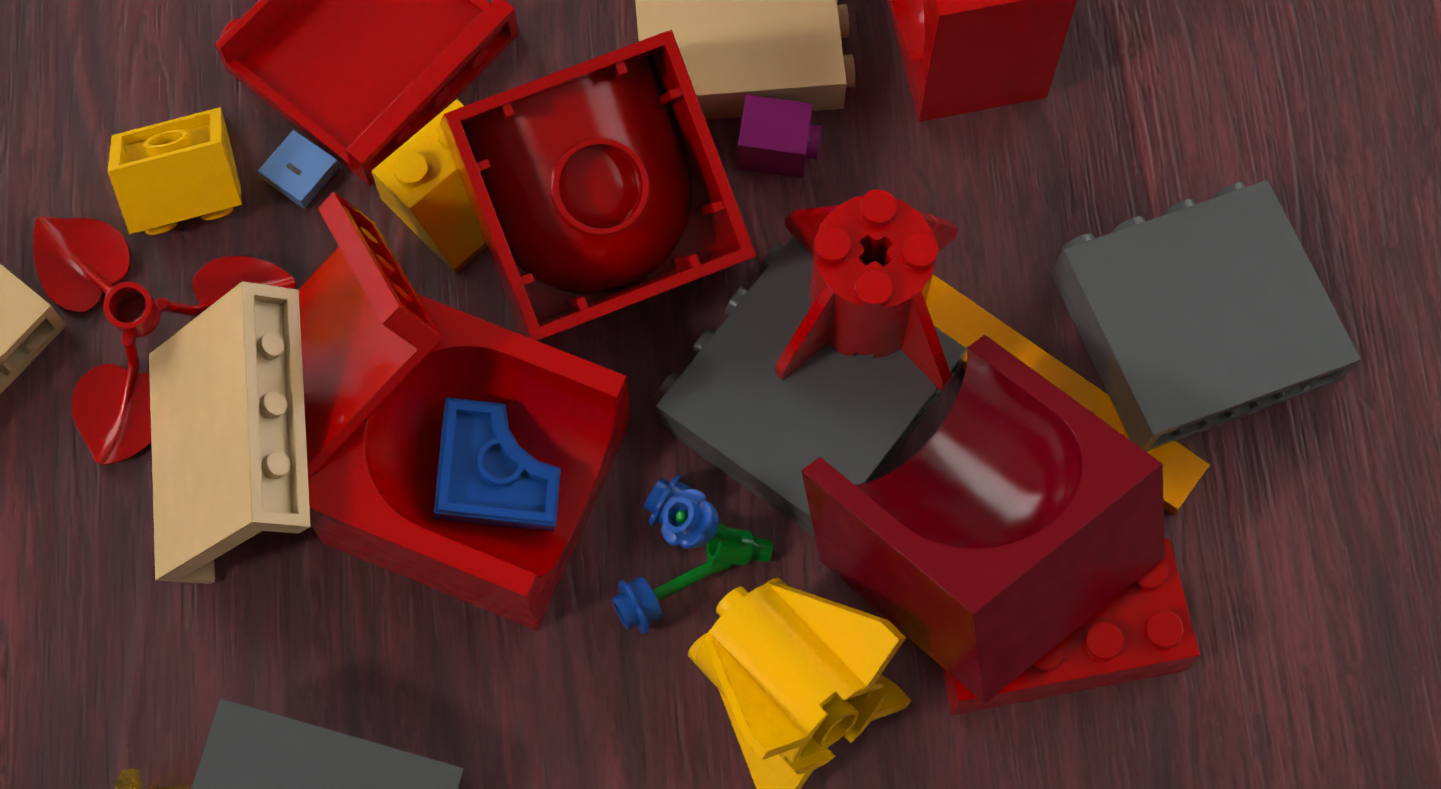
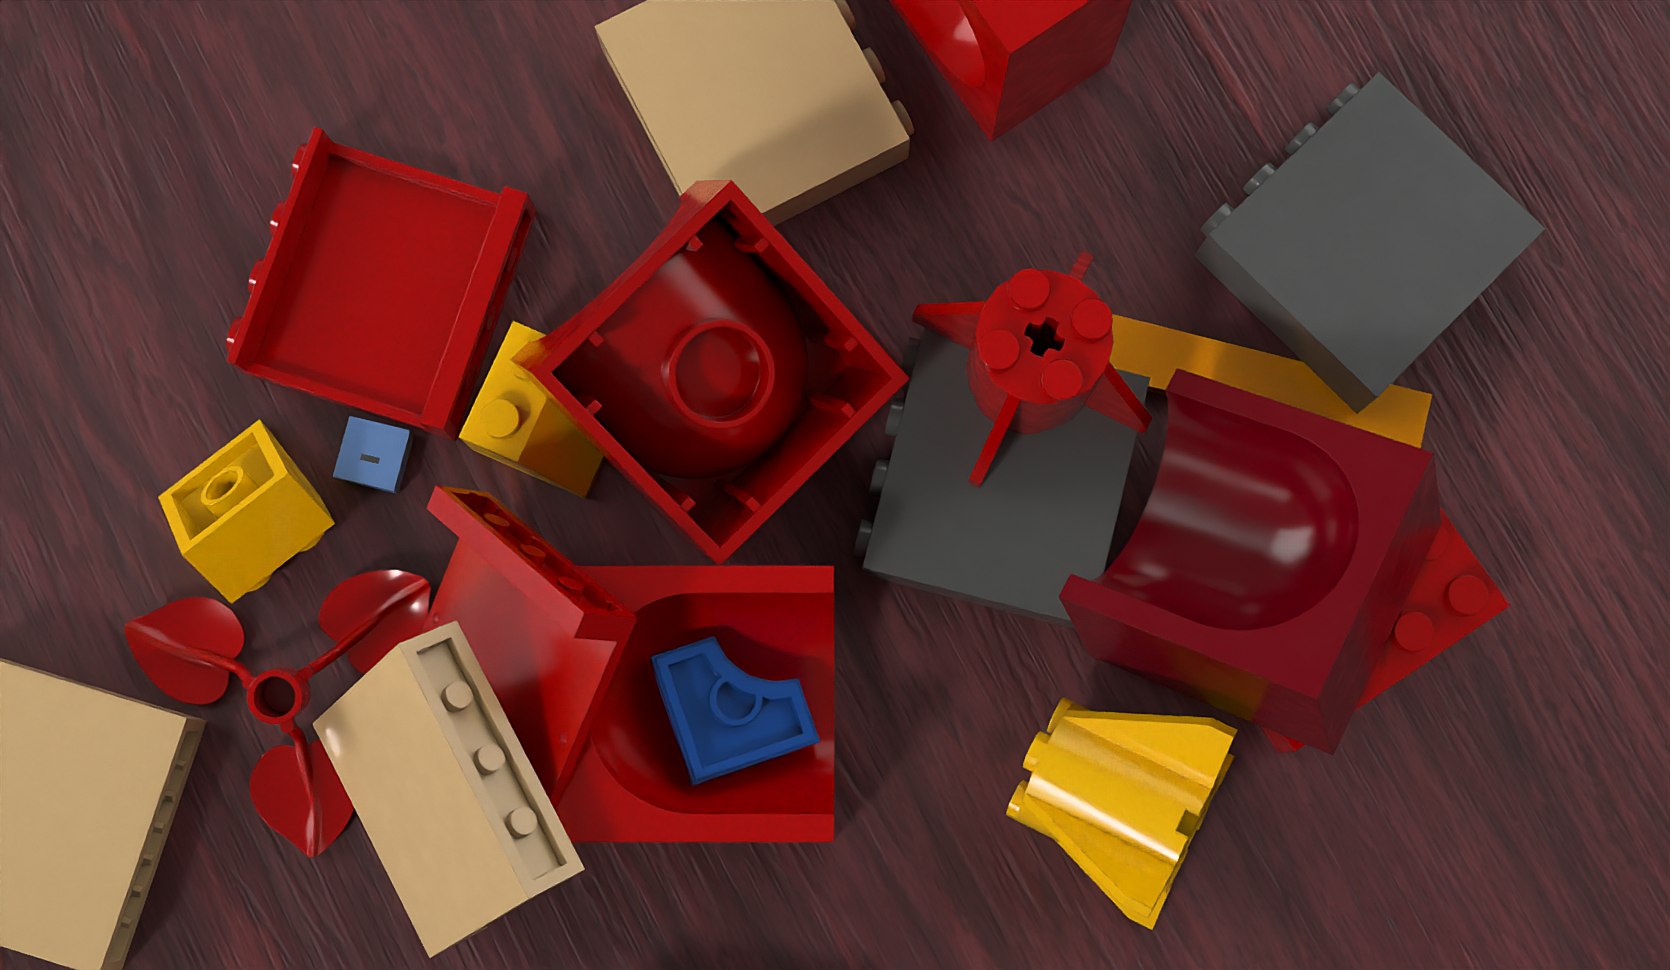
camera: 20 degrees left, 10 degrees up
(691, 523) = (957, 687): blue plant -> none
(777, 136) = (858, 220): magenta brick -> none

